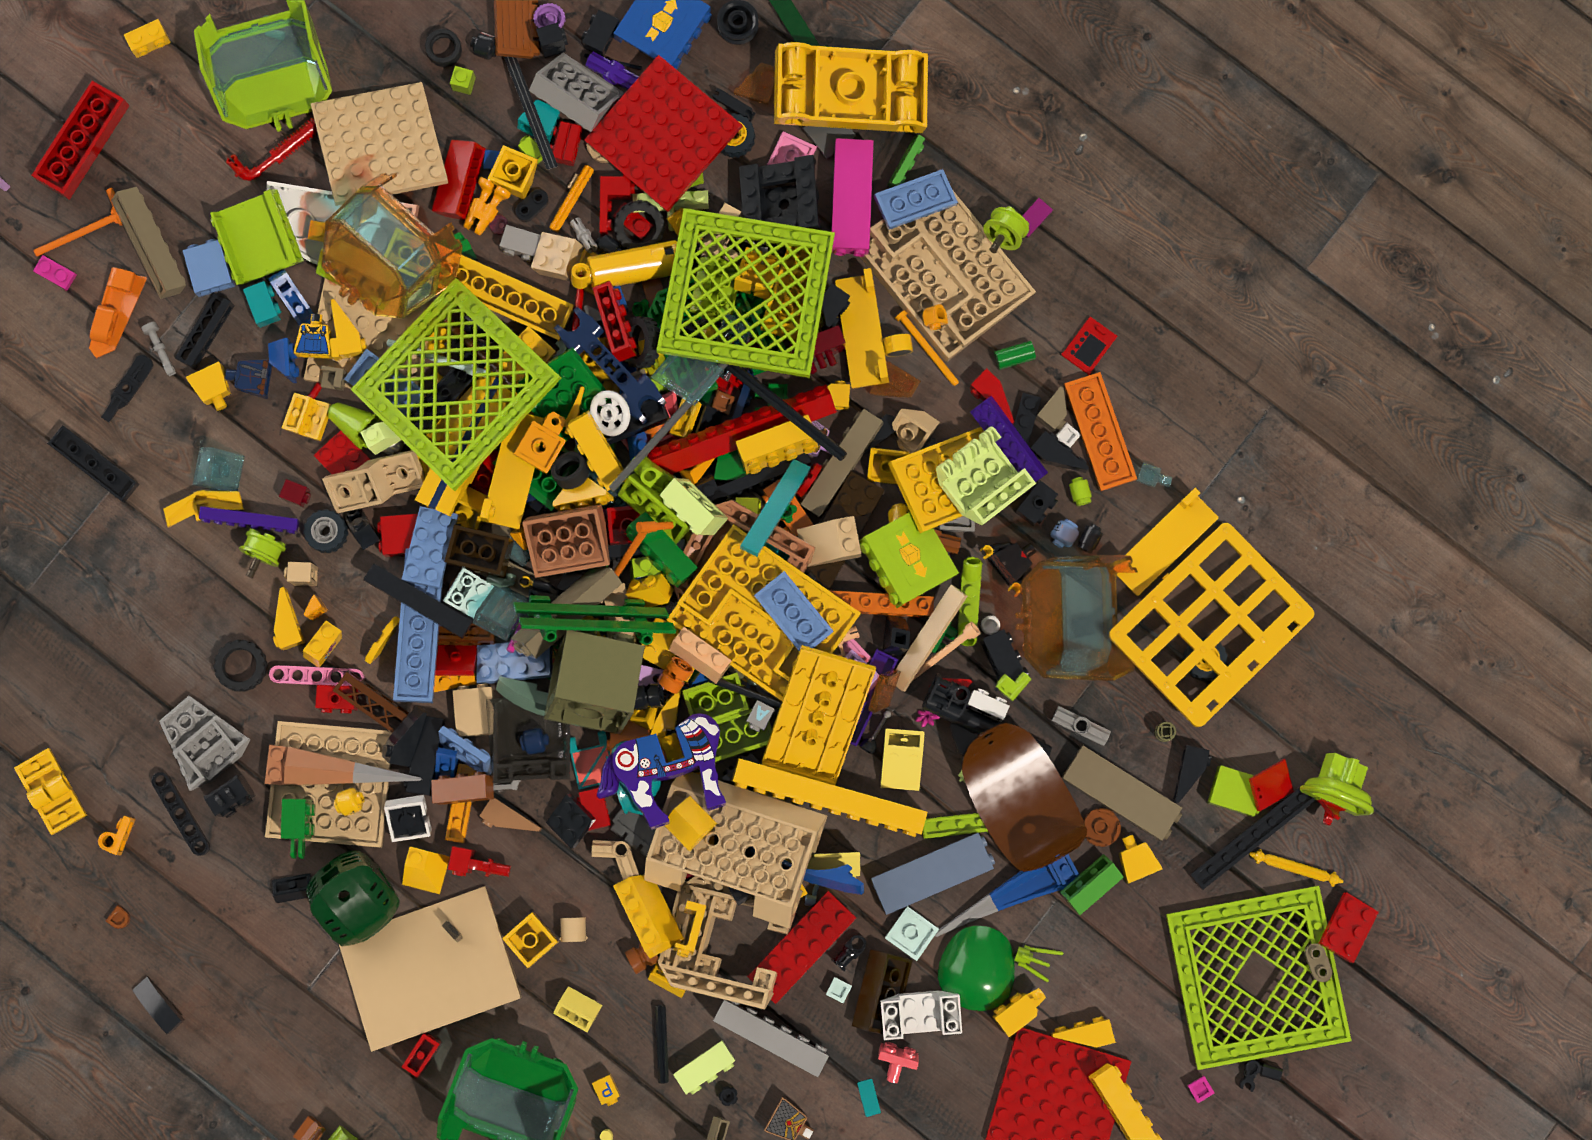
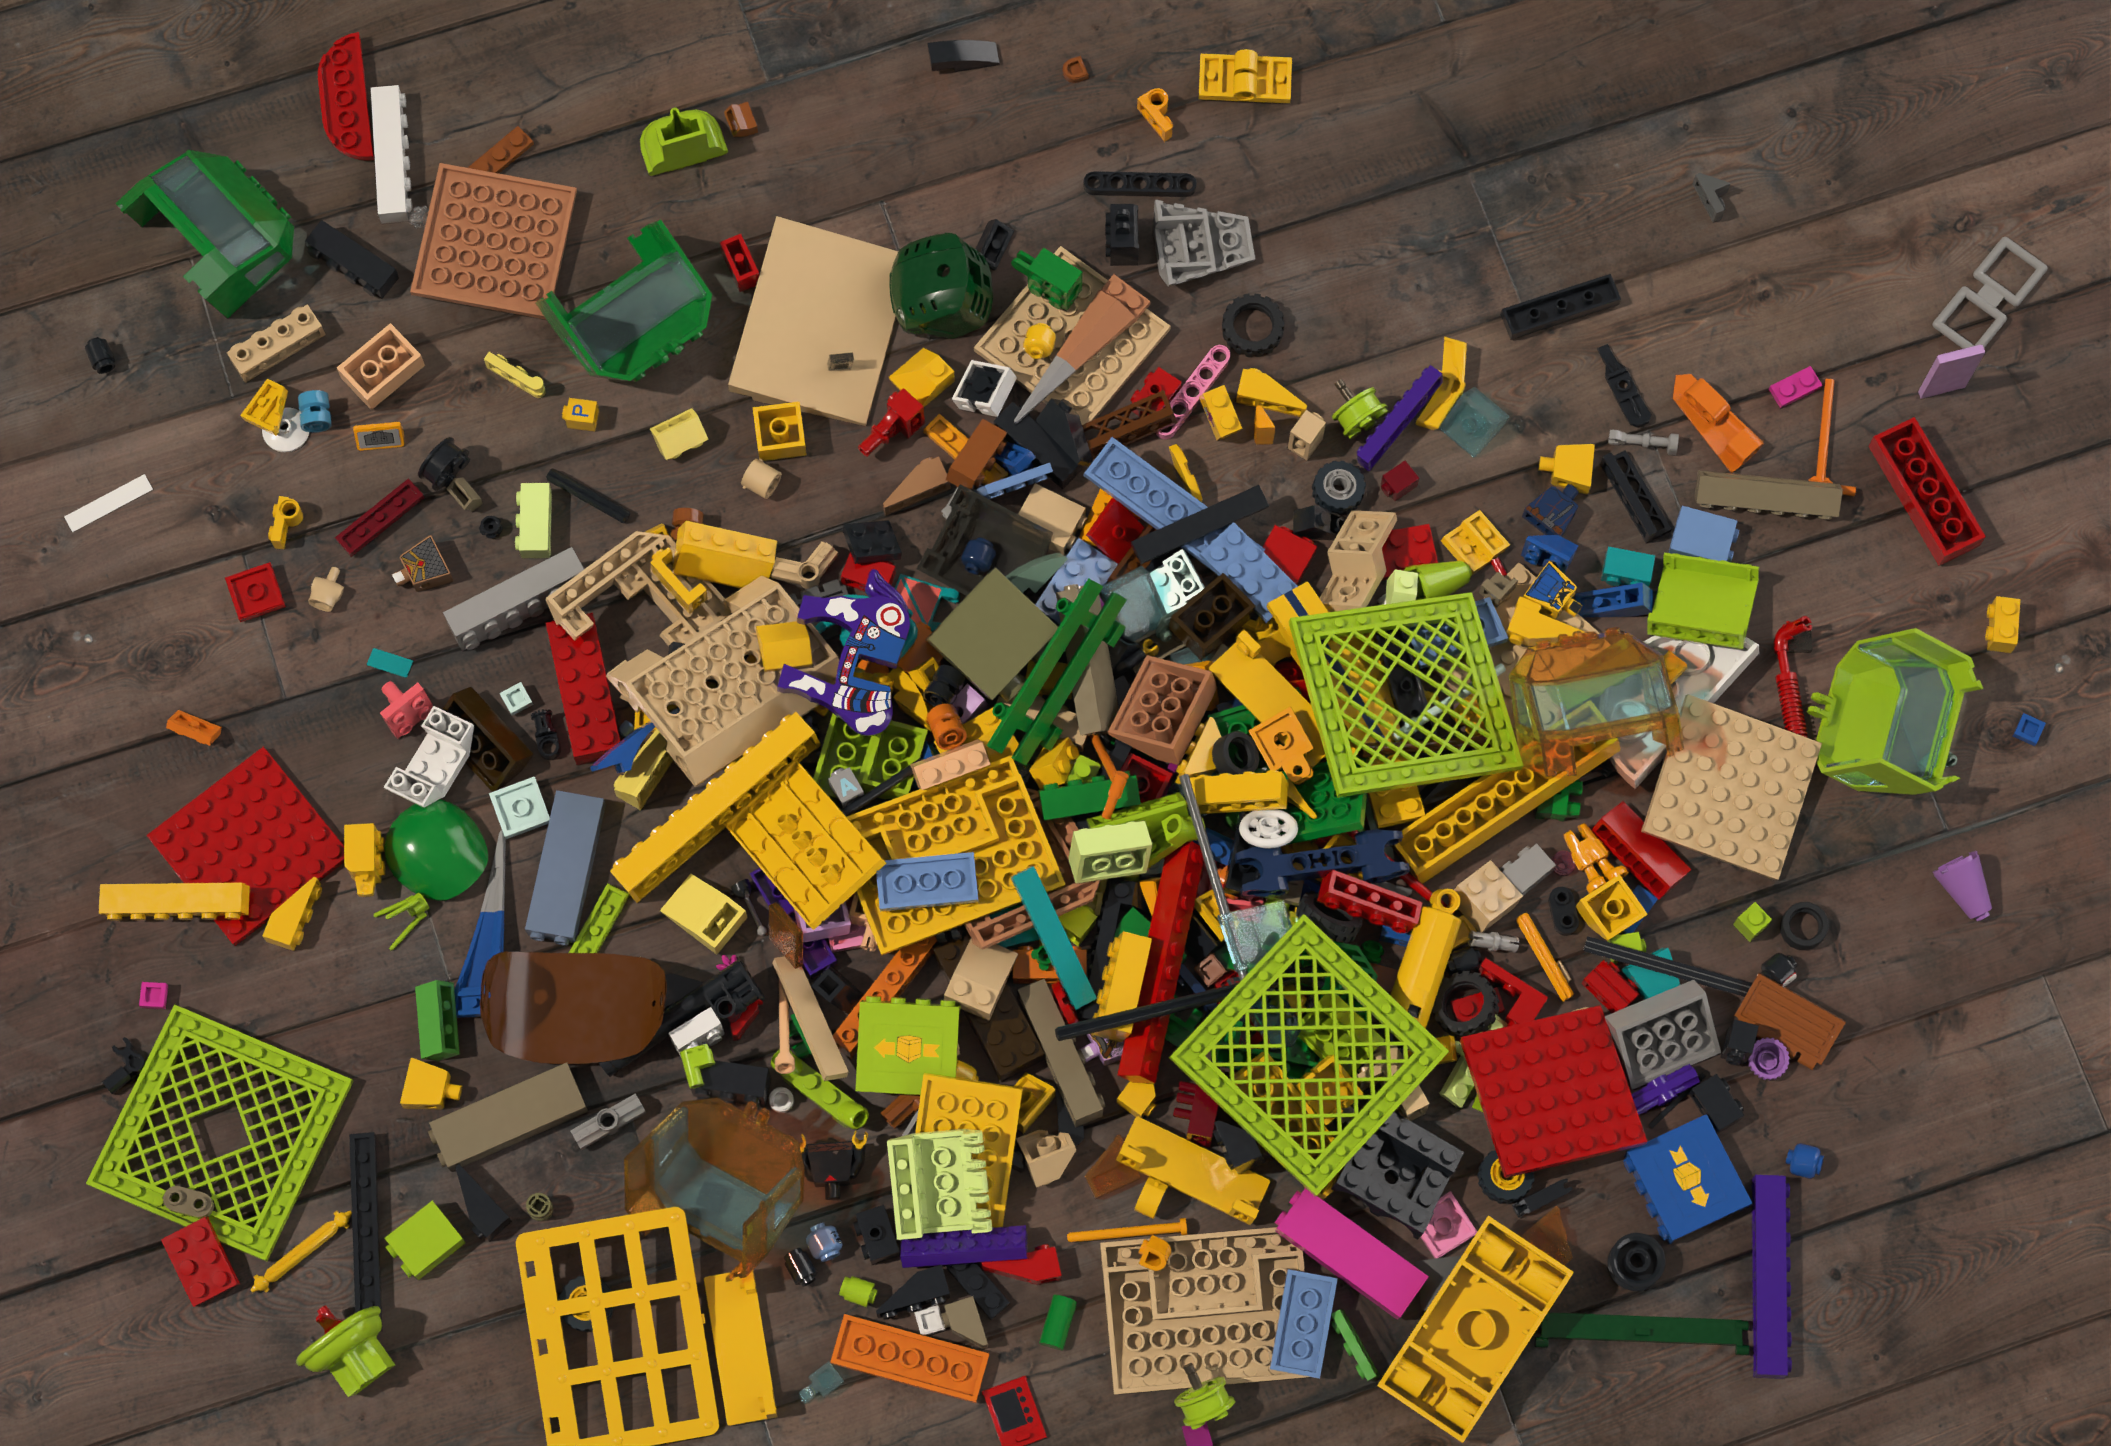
camera: 125 degrees right, 10 degrees down
(1102, 827) = (488, 1073): dark orange tile -> none
(1271, 785) = (403, 1279): red container -> none

